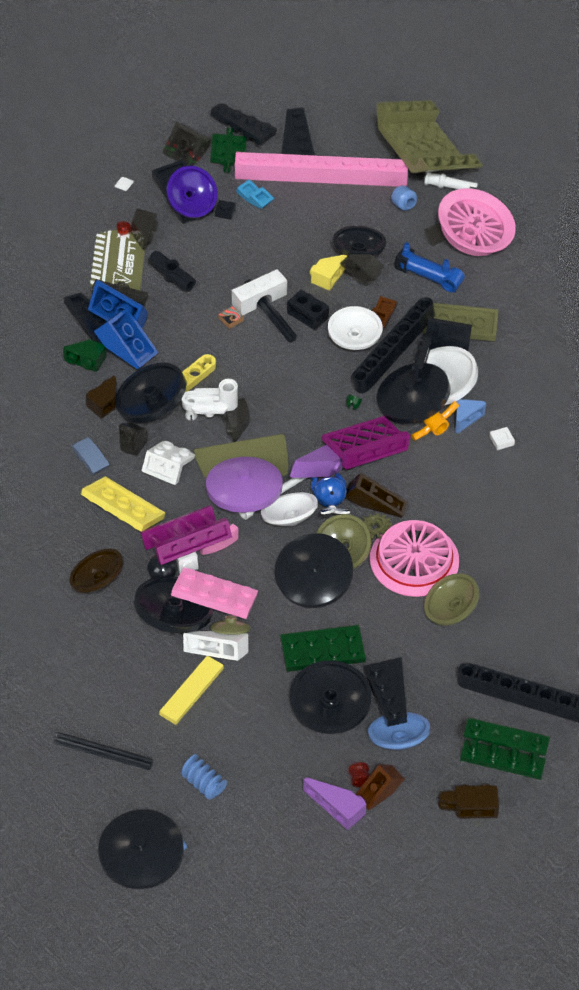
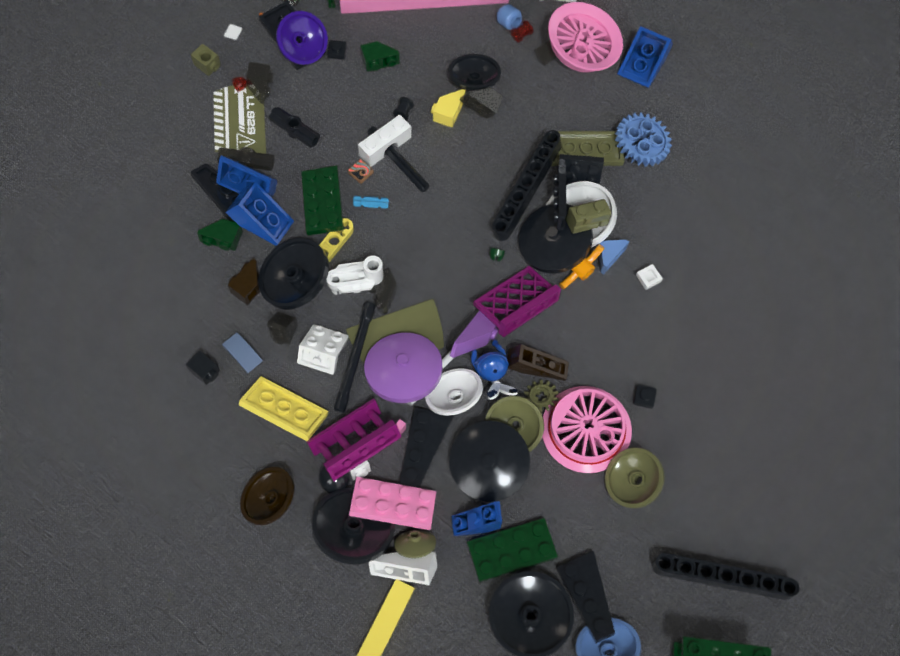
camera: 10 degrees left, 15 degrees up
(51, 462) = (203, 368): none -> black brick
(93, 204) = (205, 60): none -> olive brick
(182, 502) = (344, 394): none -> black piece
(189, 336) = (322, 200): none -> dark green plate
(236, 344) = (372, 202): none -> dark azure axle
(252, 551) = (423, 443): none -> black wing
(254, 195) = (365, 31): dark azure slope -> none
(266, 218) = (378, 56): none -> dark green slope
(284, 265) = (404, 107): none -> black bush
(294, 616) = (478, 520): none -> blue slope
(308, 309) = (433, 157): black brick -> none
(355, 328) = (489, 163): white dish -> none
(385, 309) = (508, 147): reddish brown slope -> none
(414, 212) = (522, 31): none -> clear red bush
(446, 370) = (588, 216): none -> olive brick
(450, 278) = (565, 100): blue piece -> none
(477, 539) = (645, 396): none -> black plate
(519, 319) = (638, 128): none -> medium blue gear
(537, 247) = (645, 57): none -> blue slope

